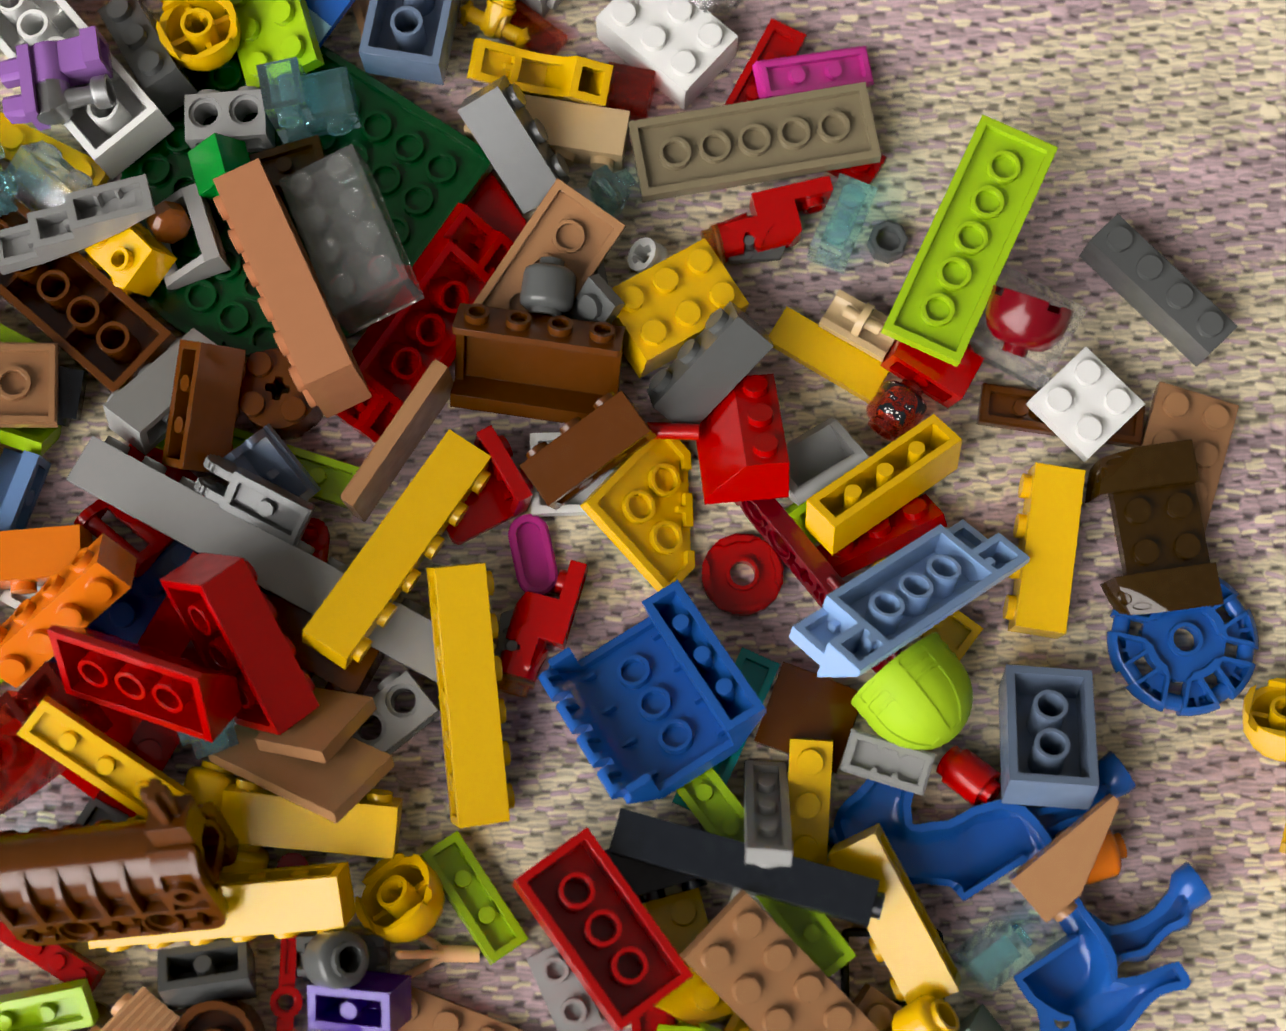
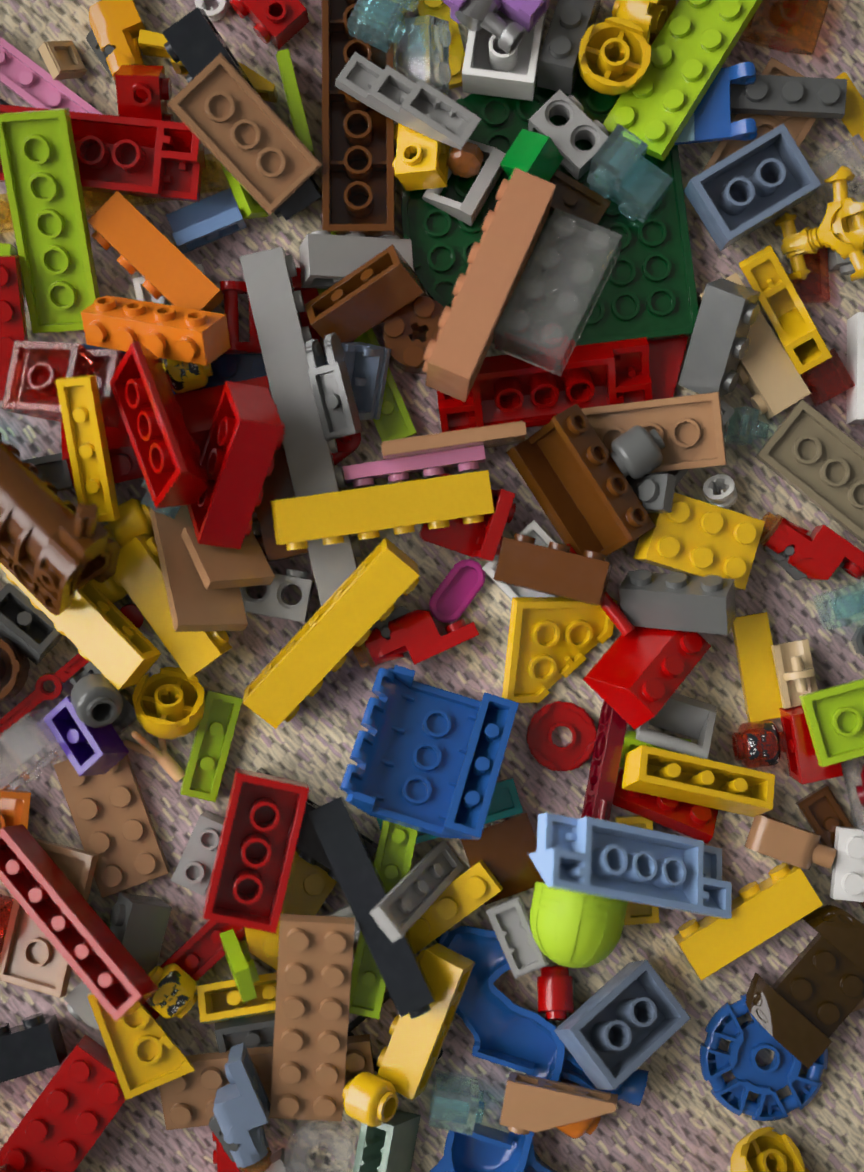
camera: 50 degrees right, 10 degrees up
(124, 618) = (186, 375): none -> yellow head
(389, 491) = (399, 468): none -> bright pink plate
(1006, 456) = (788, 843): none -> medium nougat piece

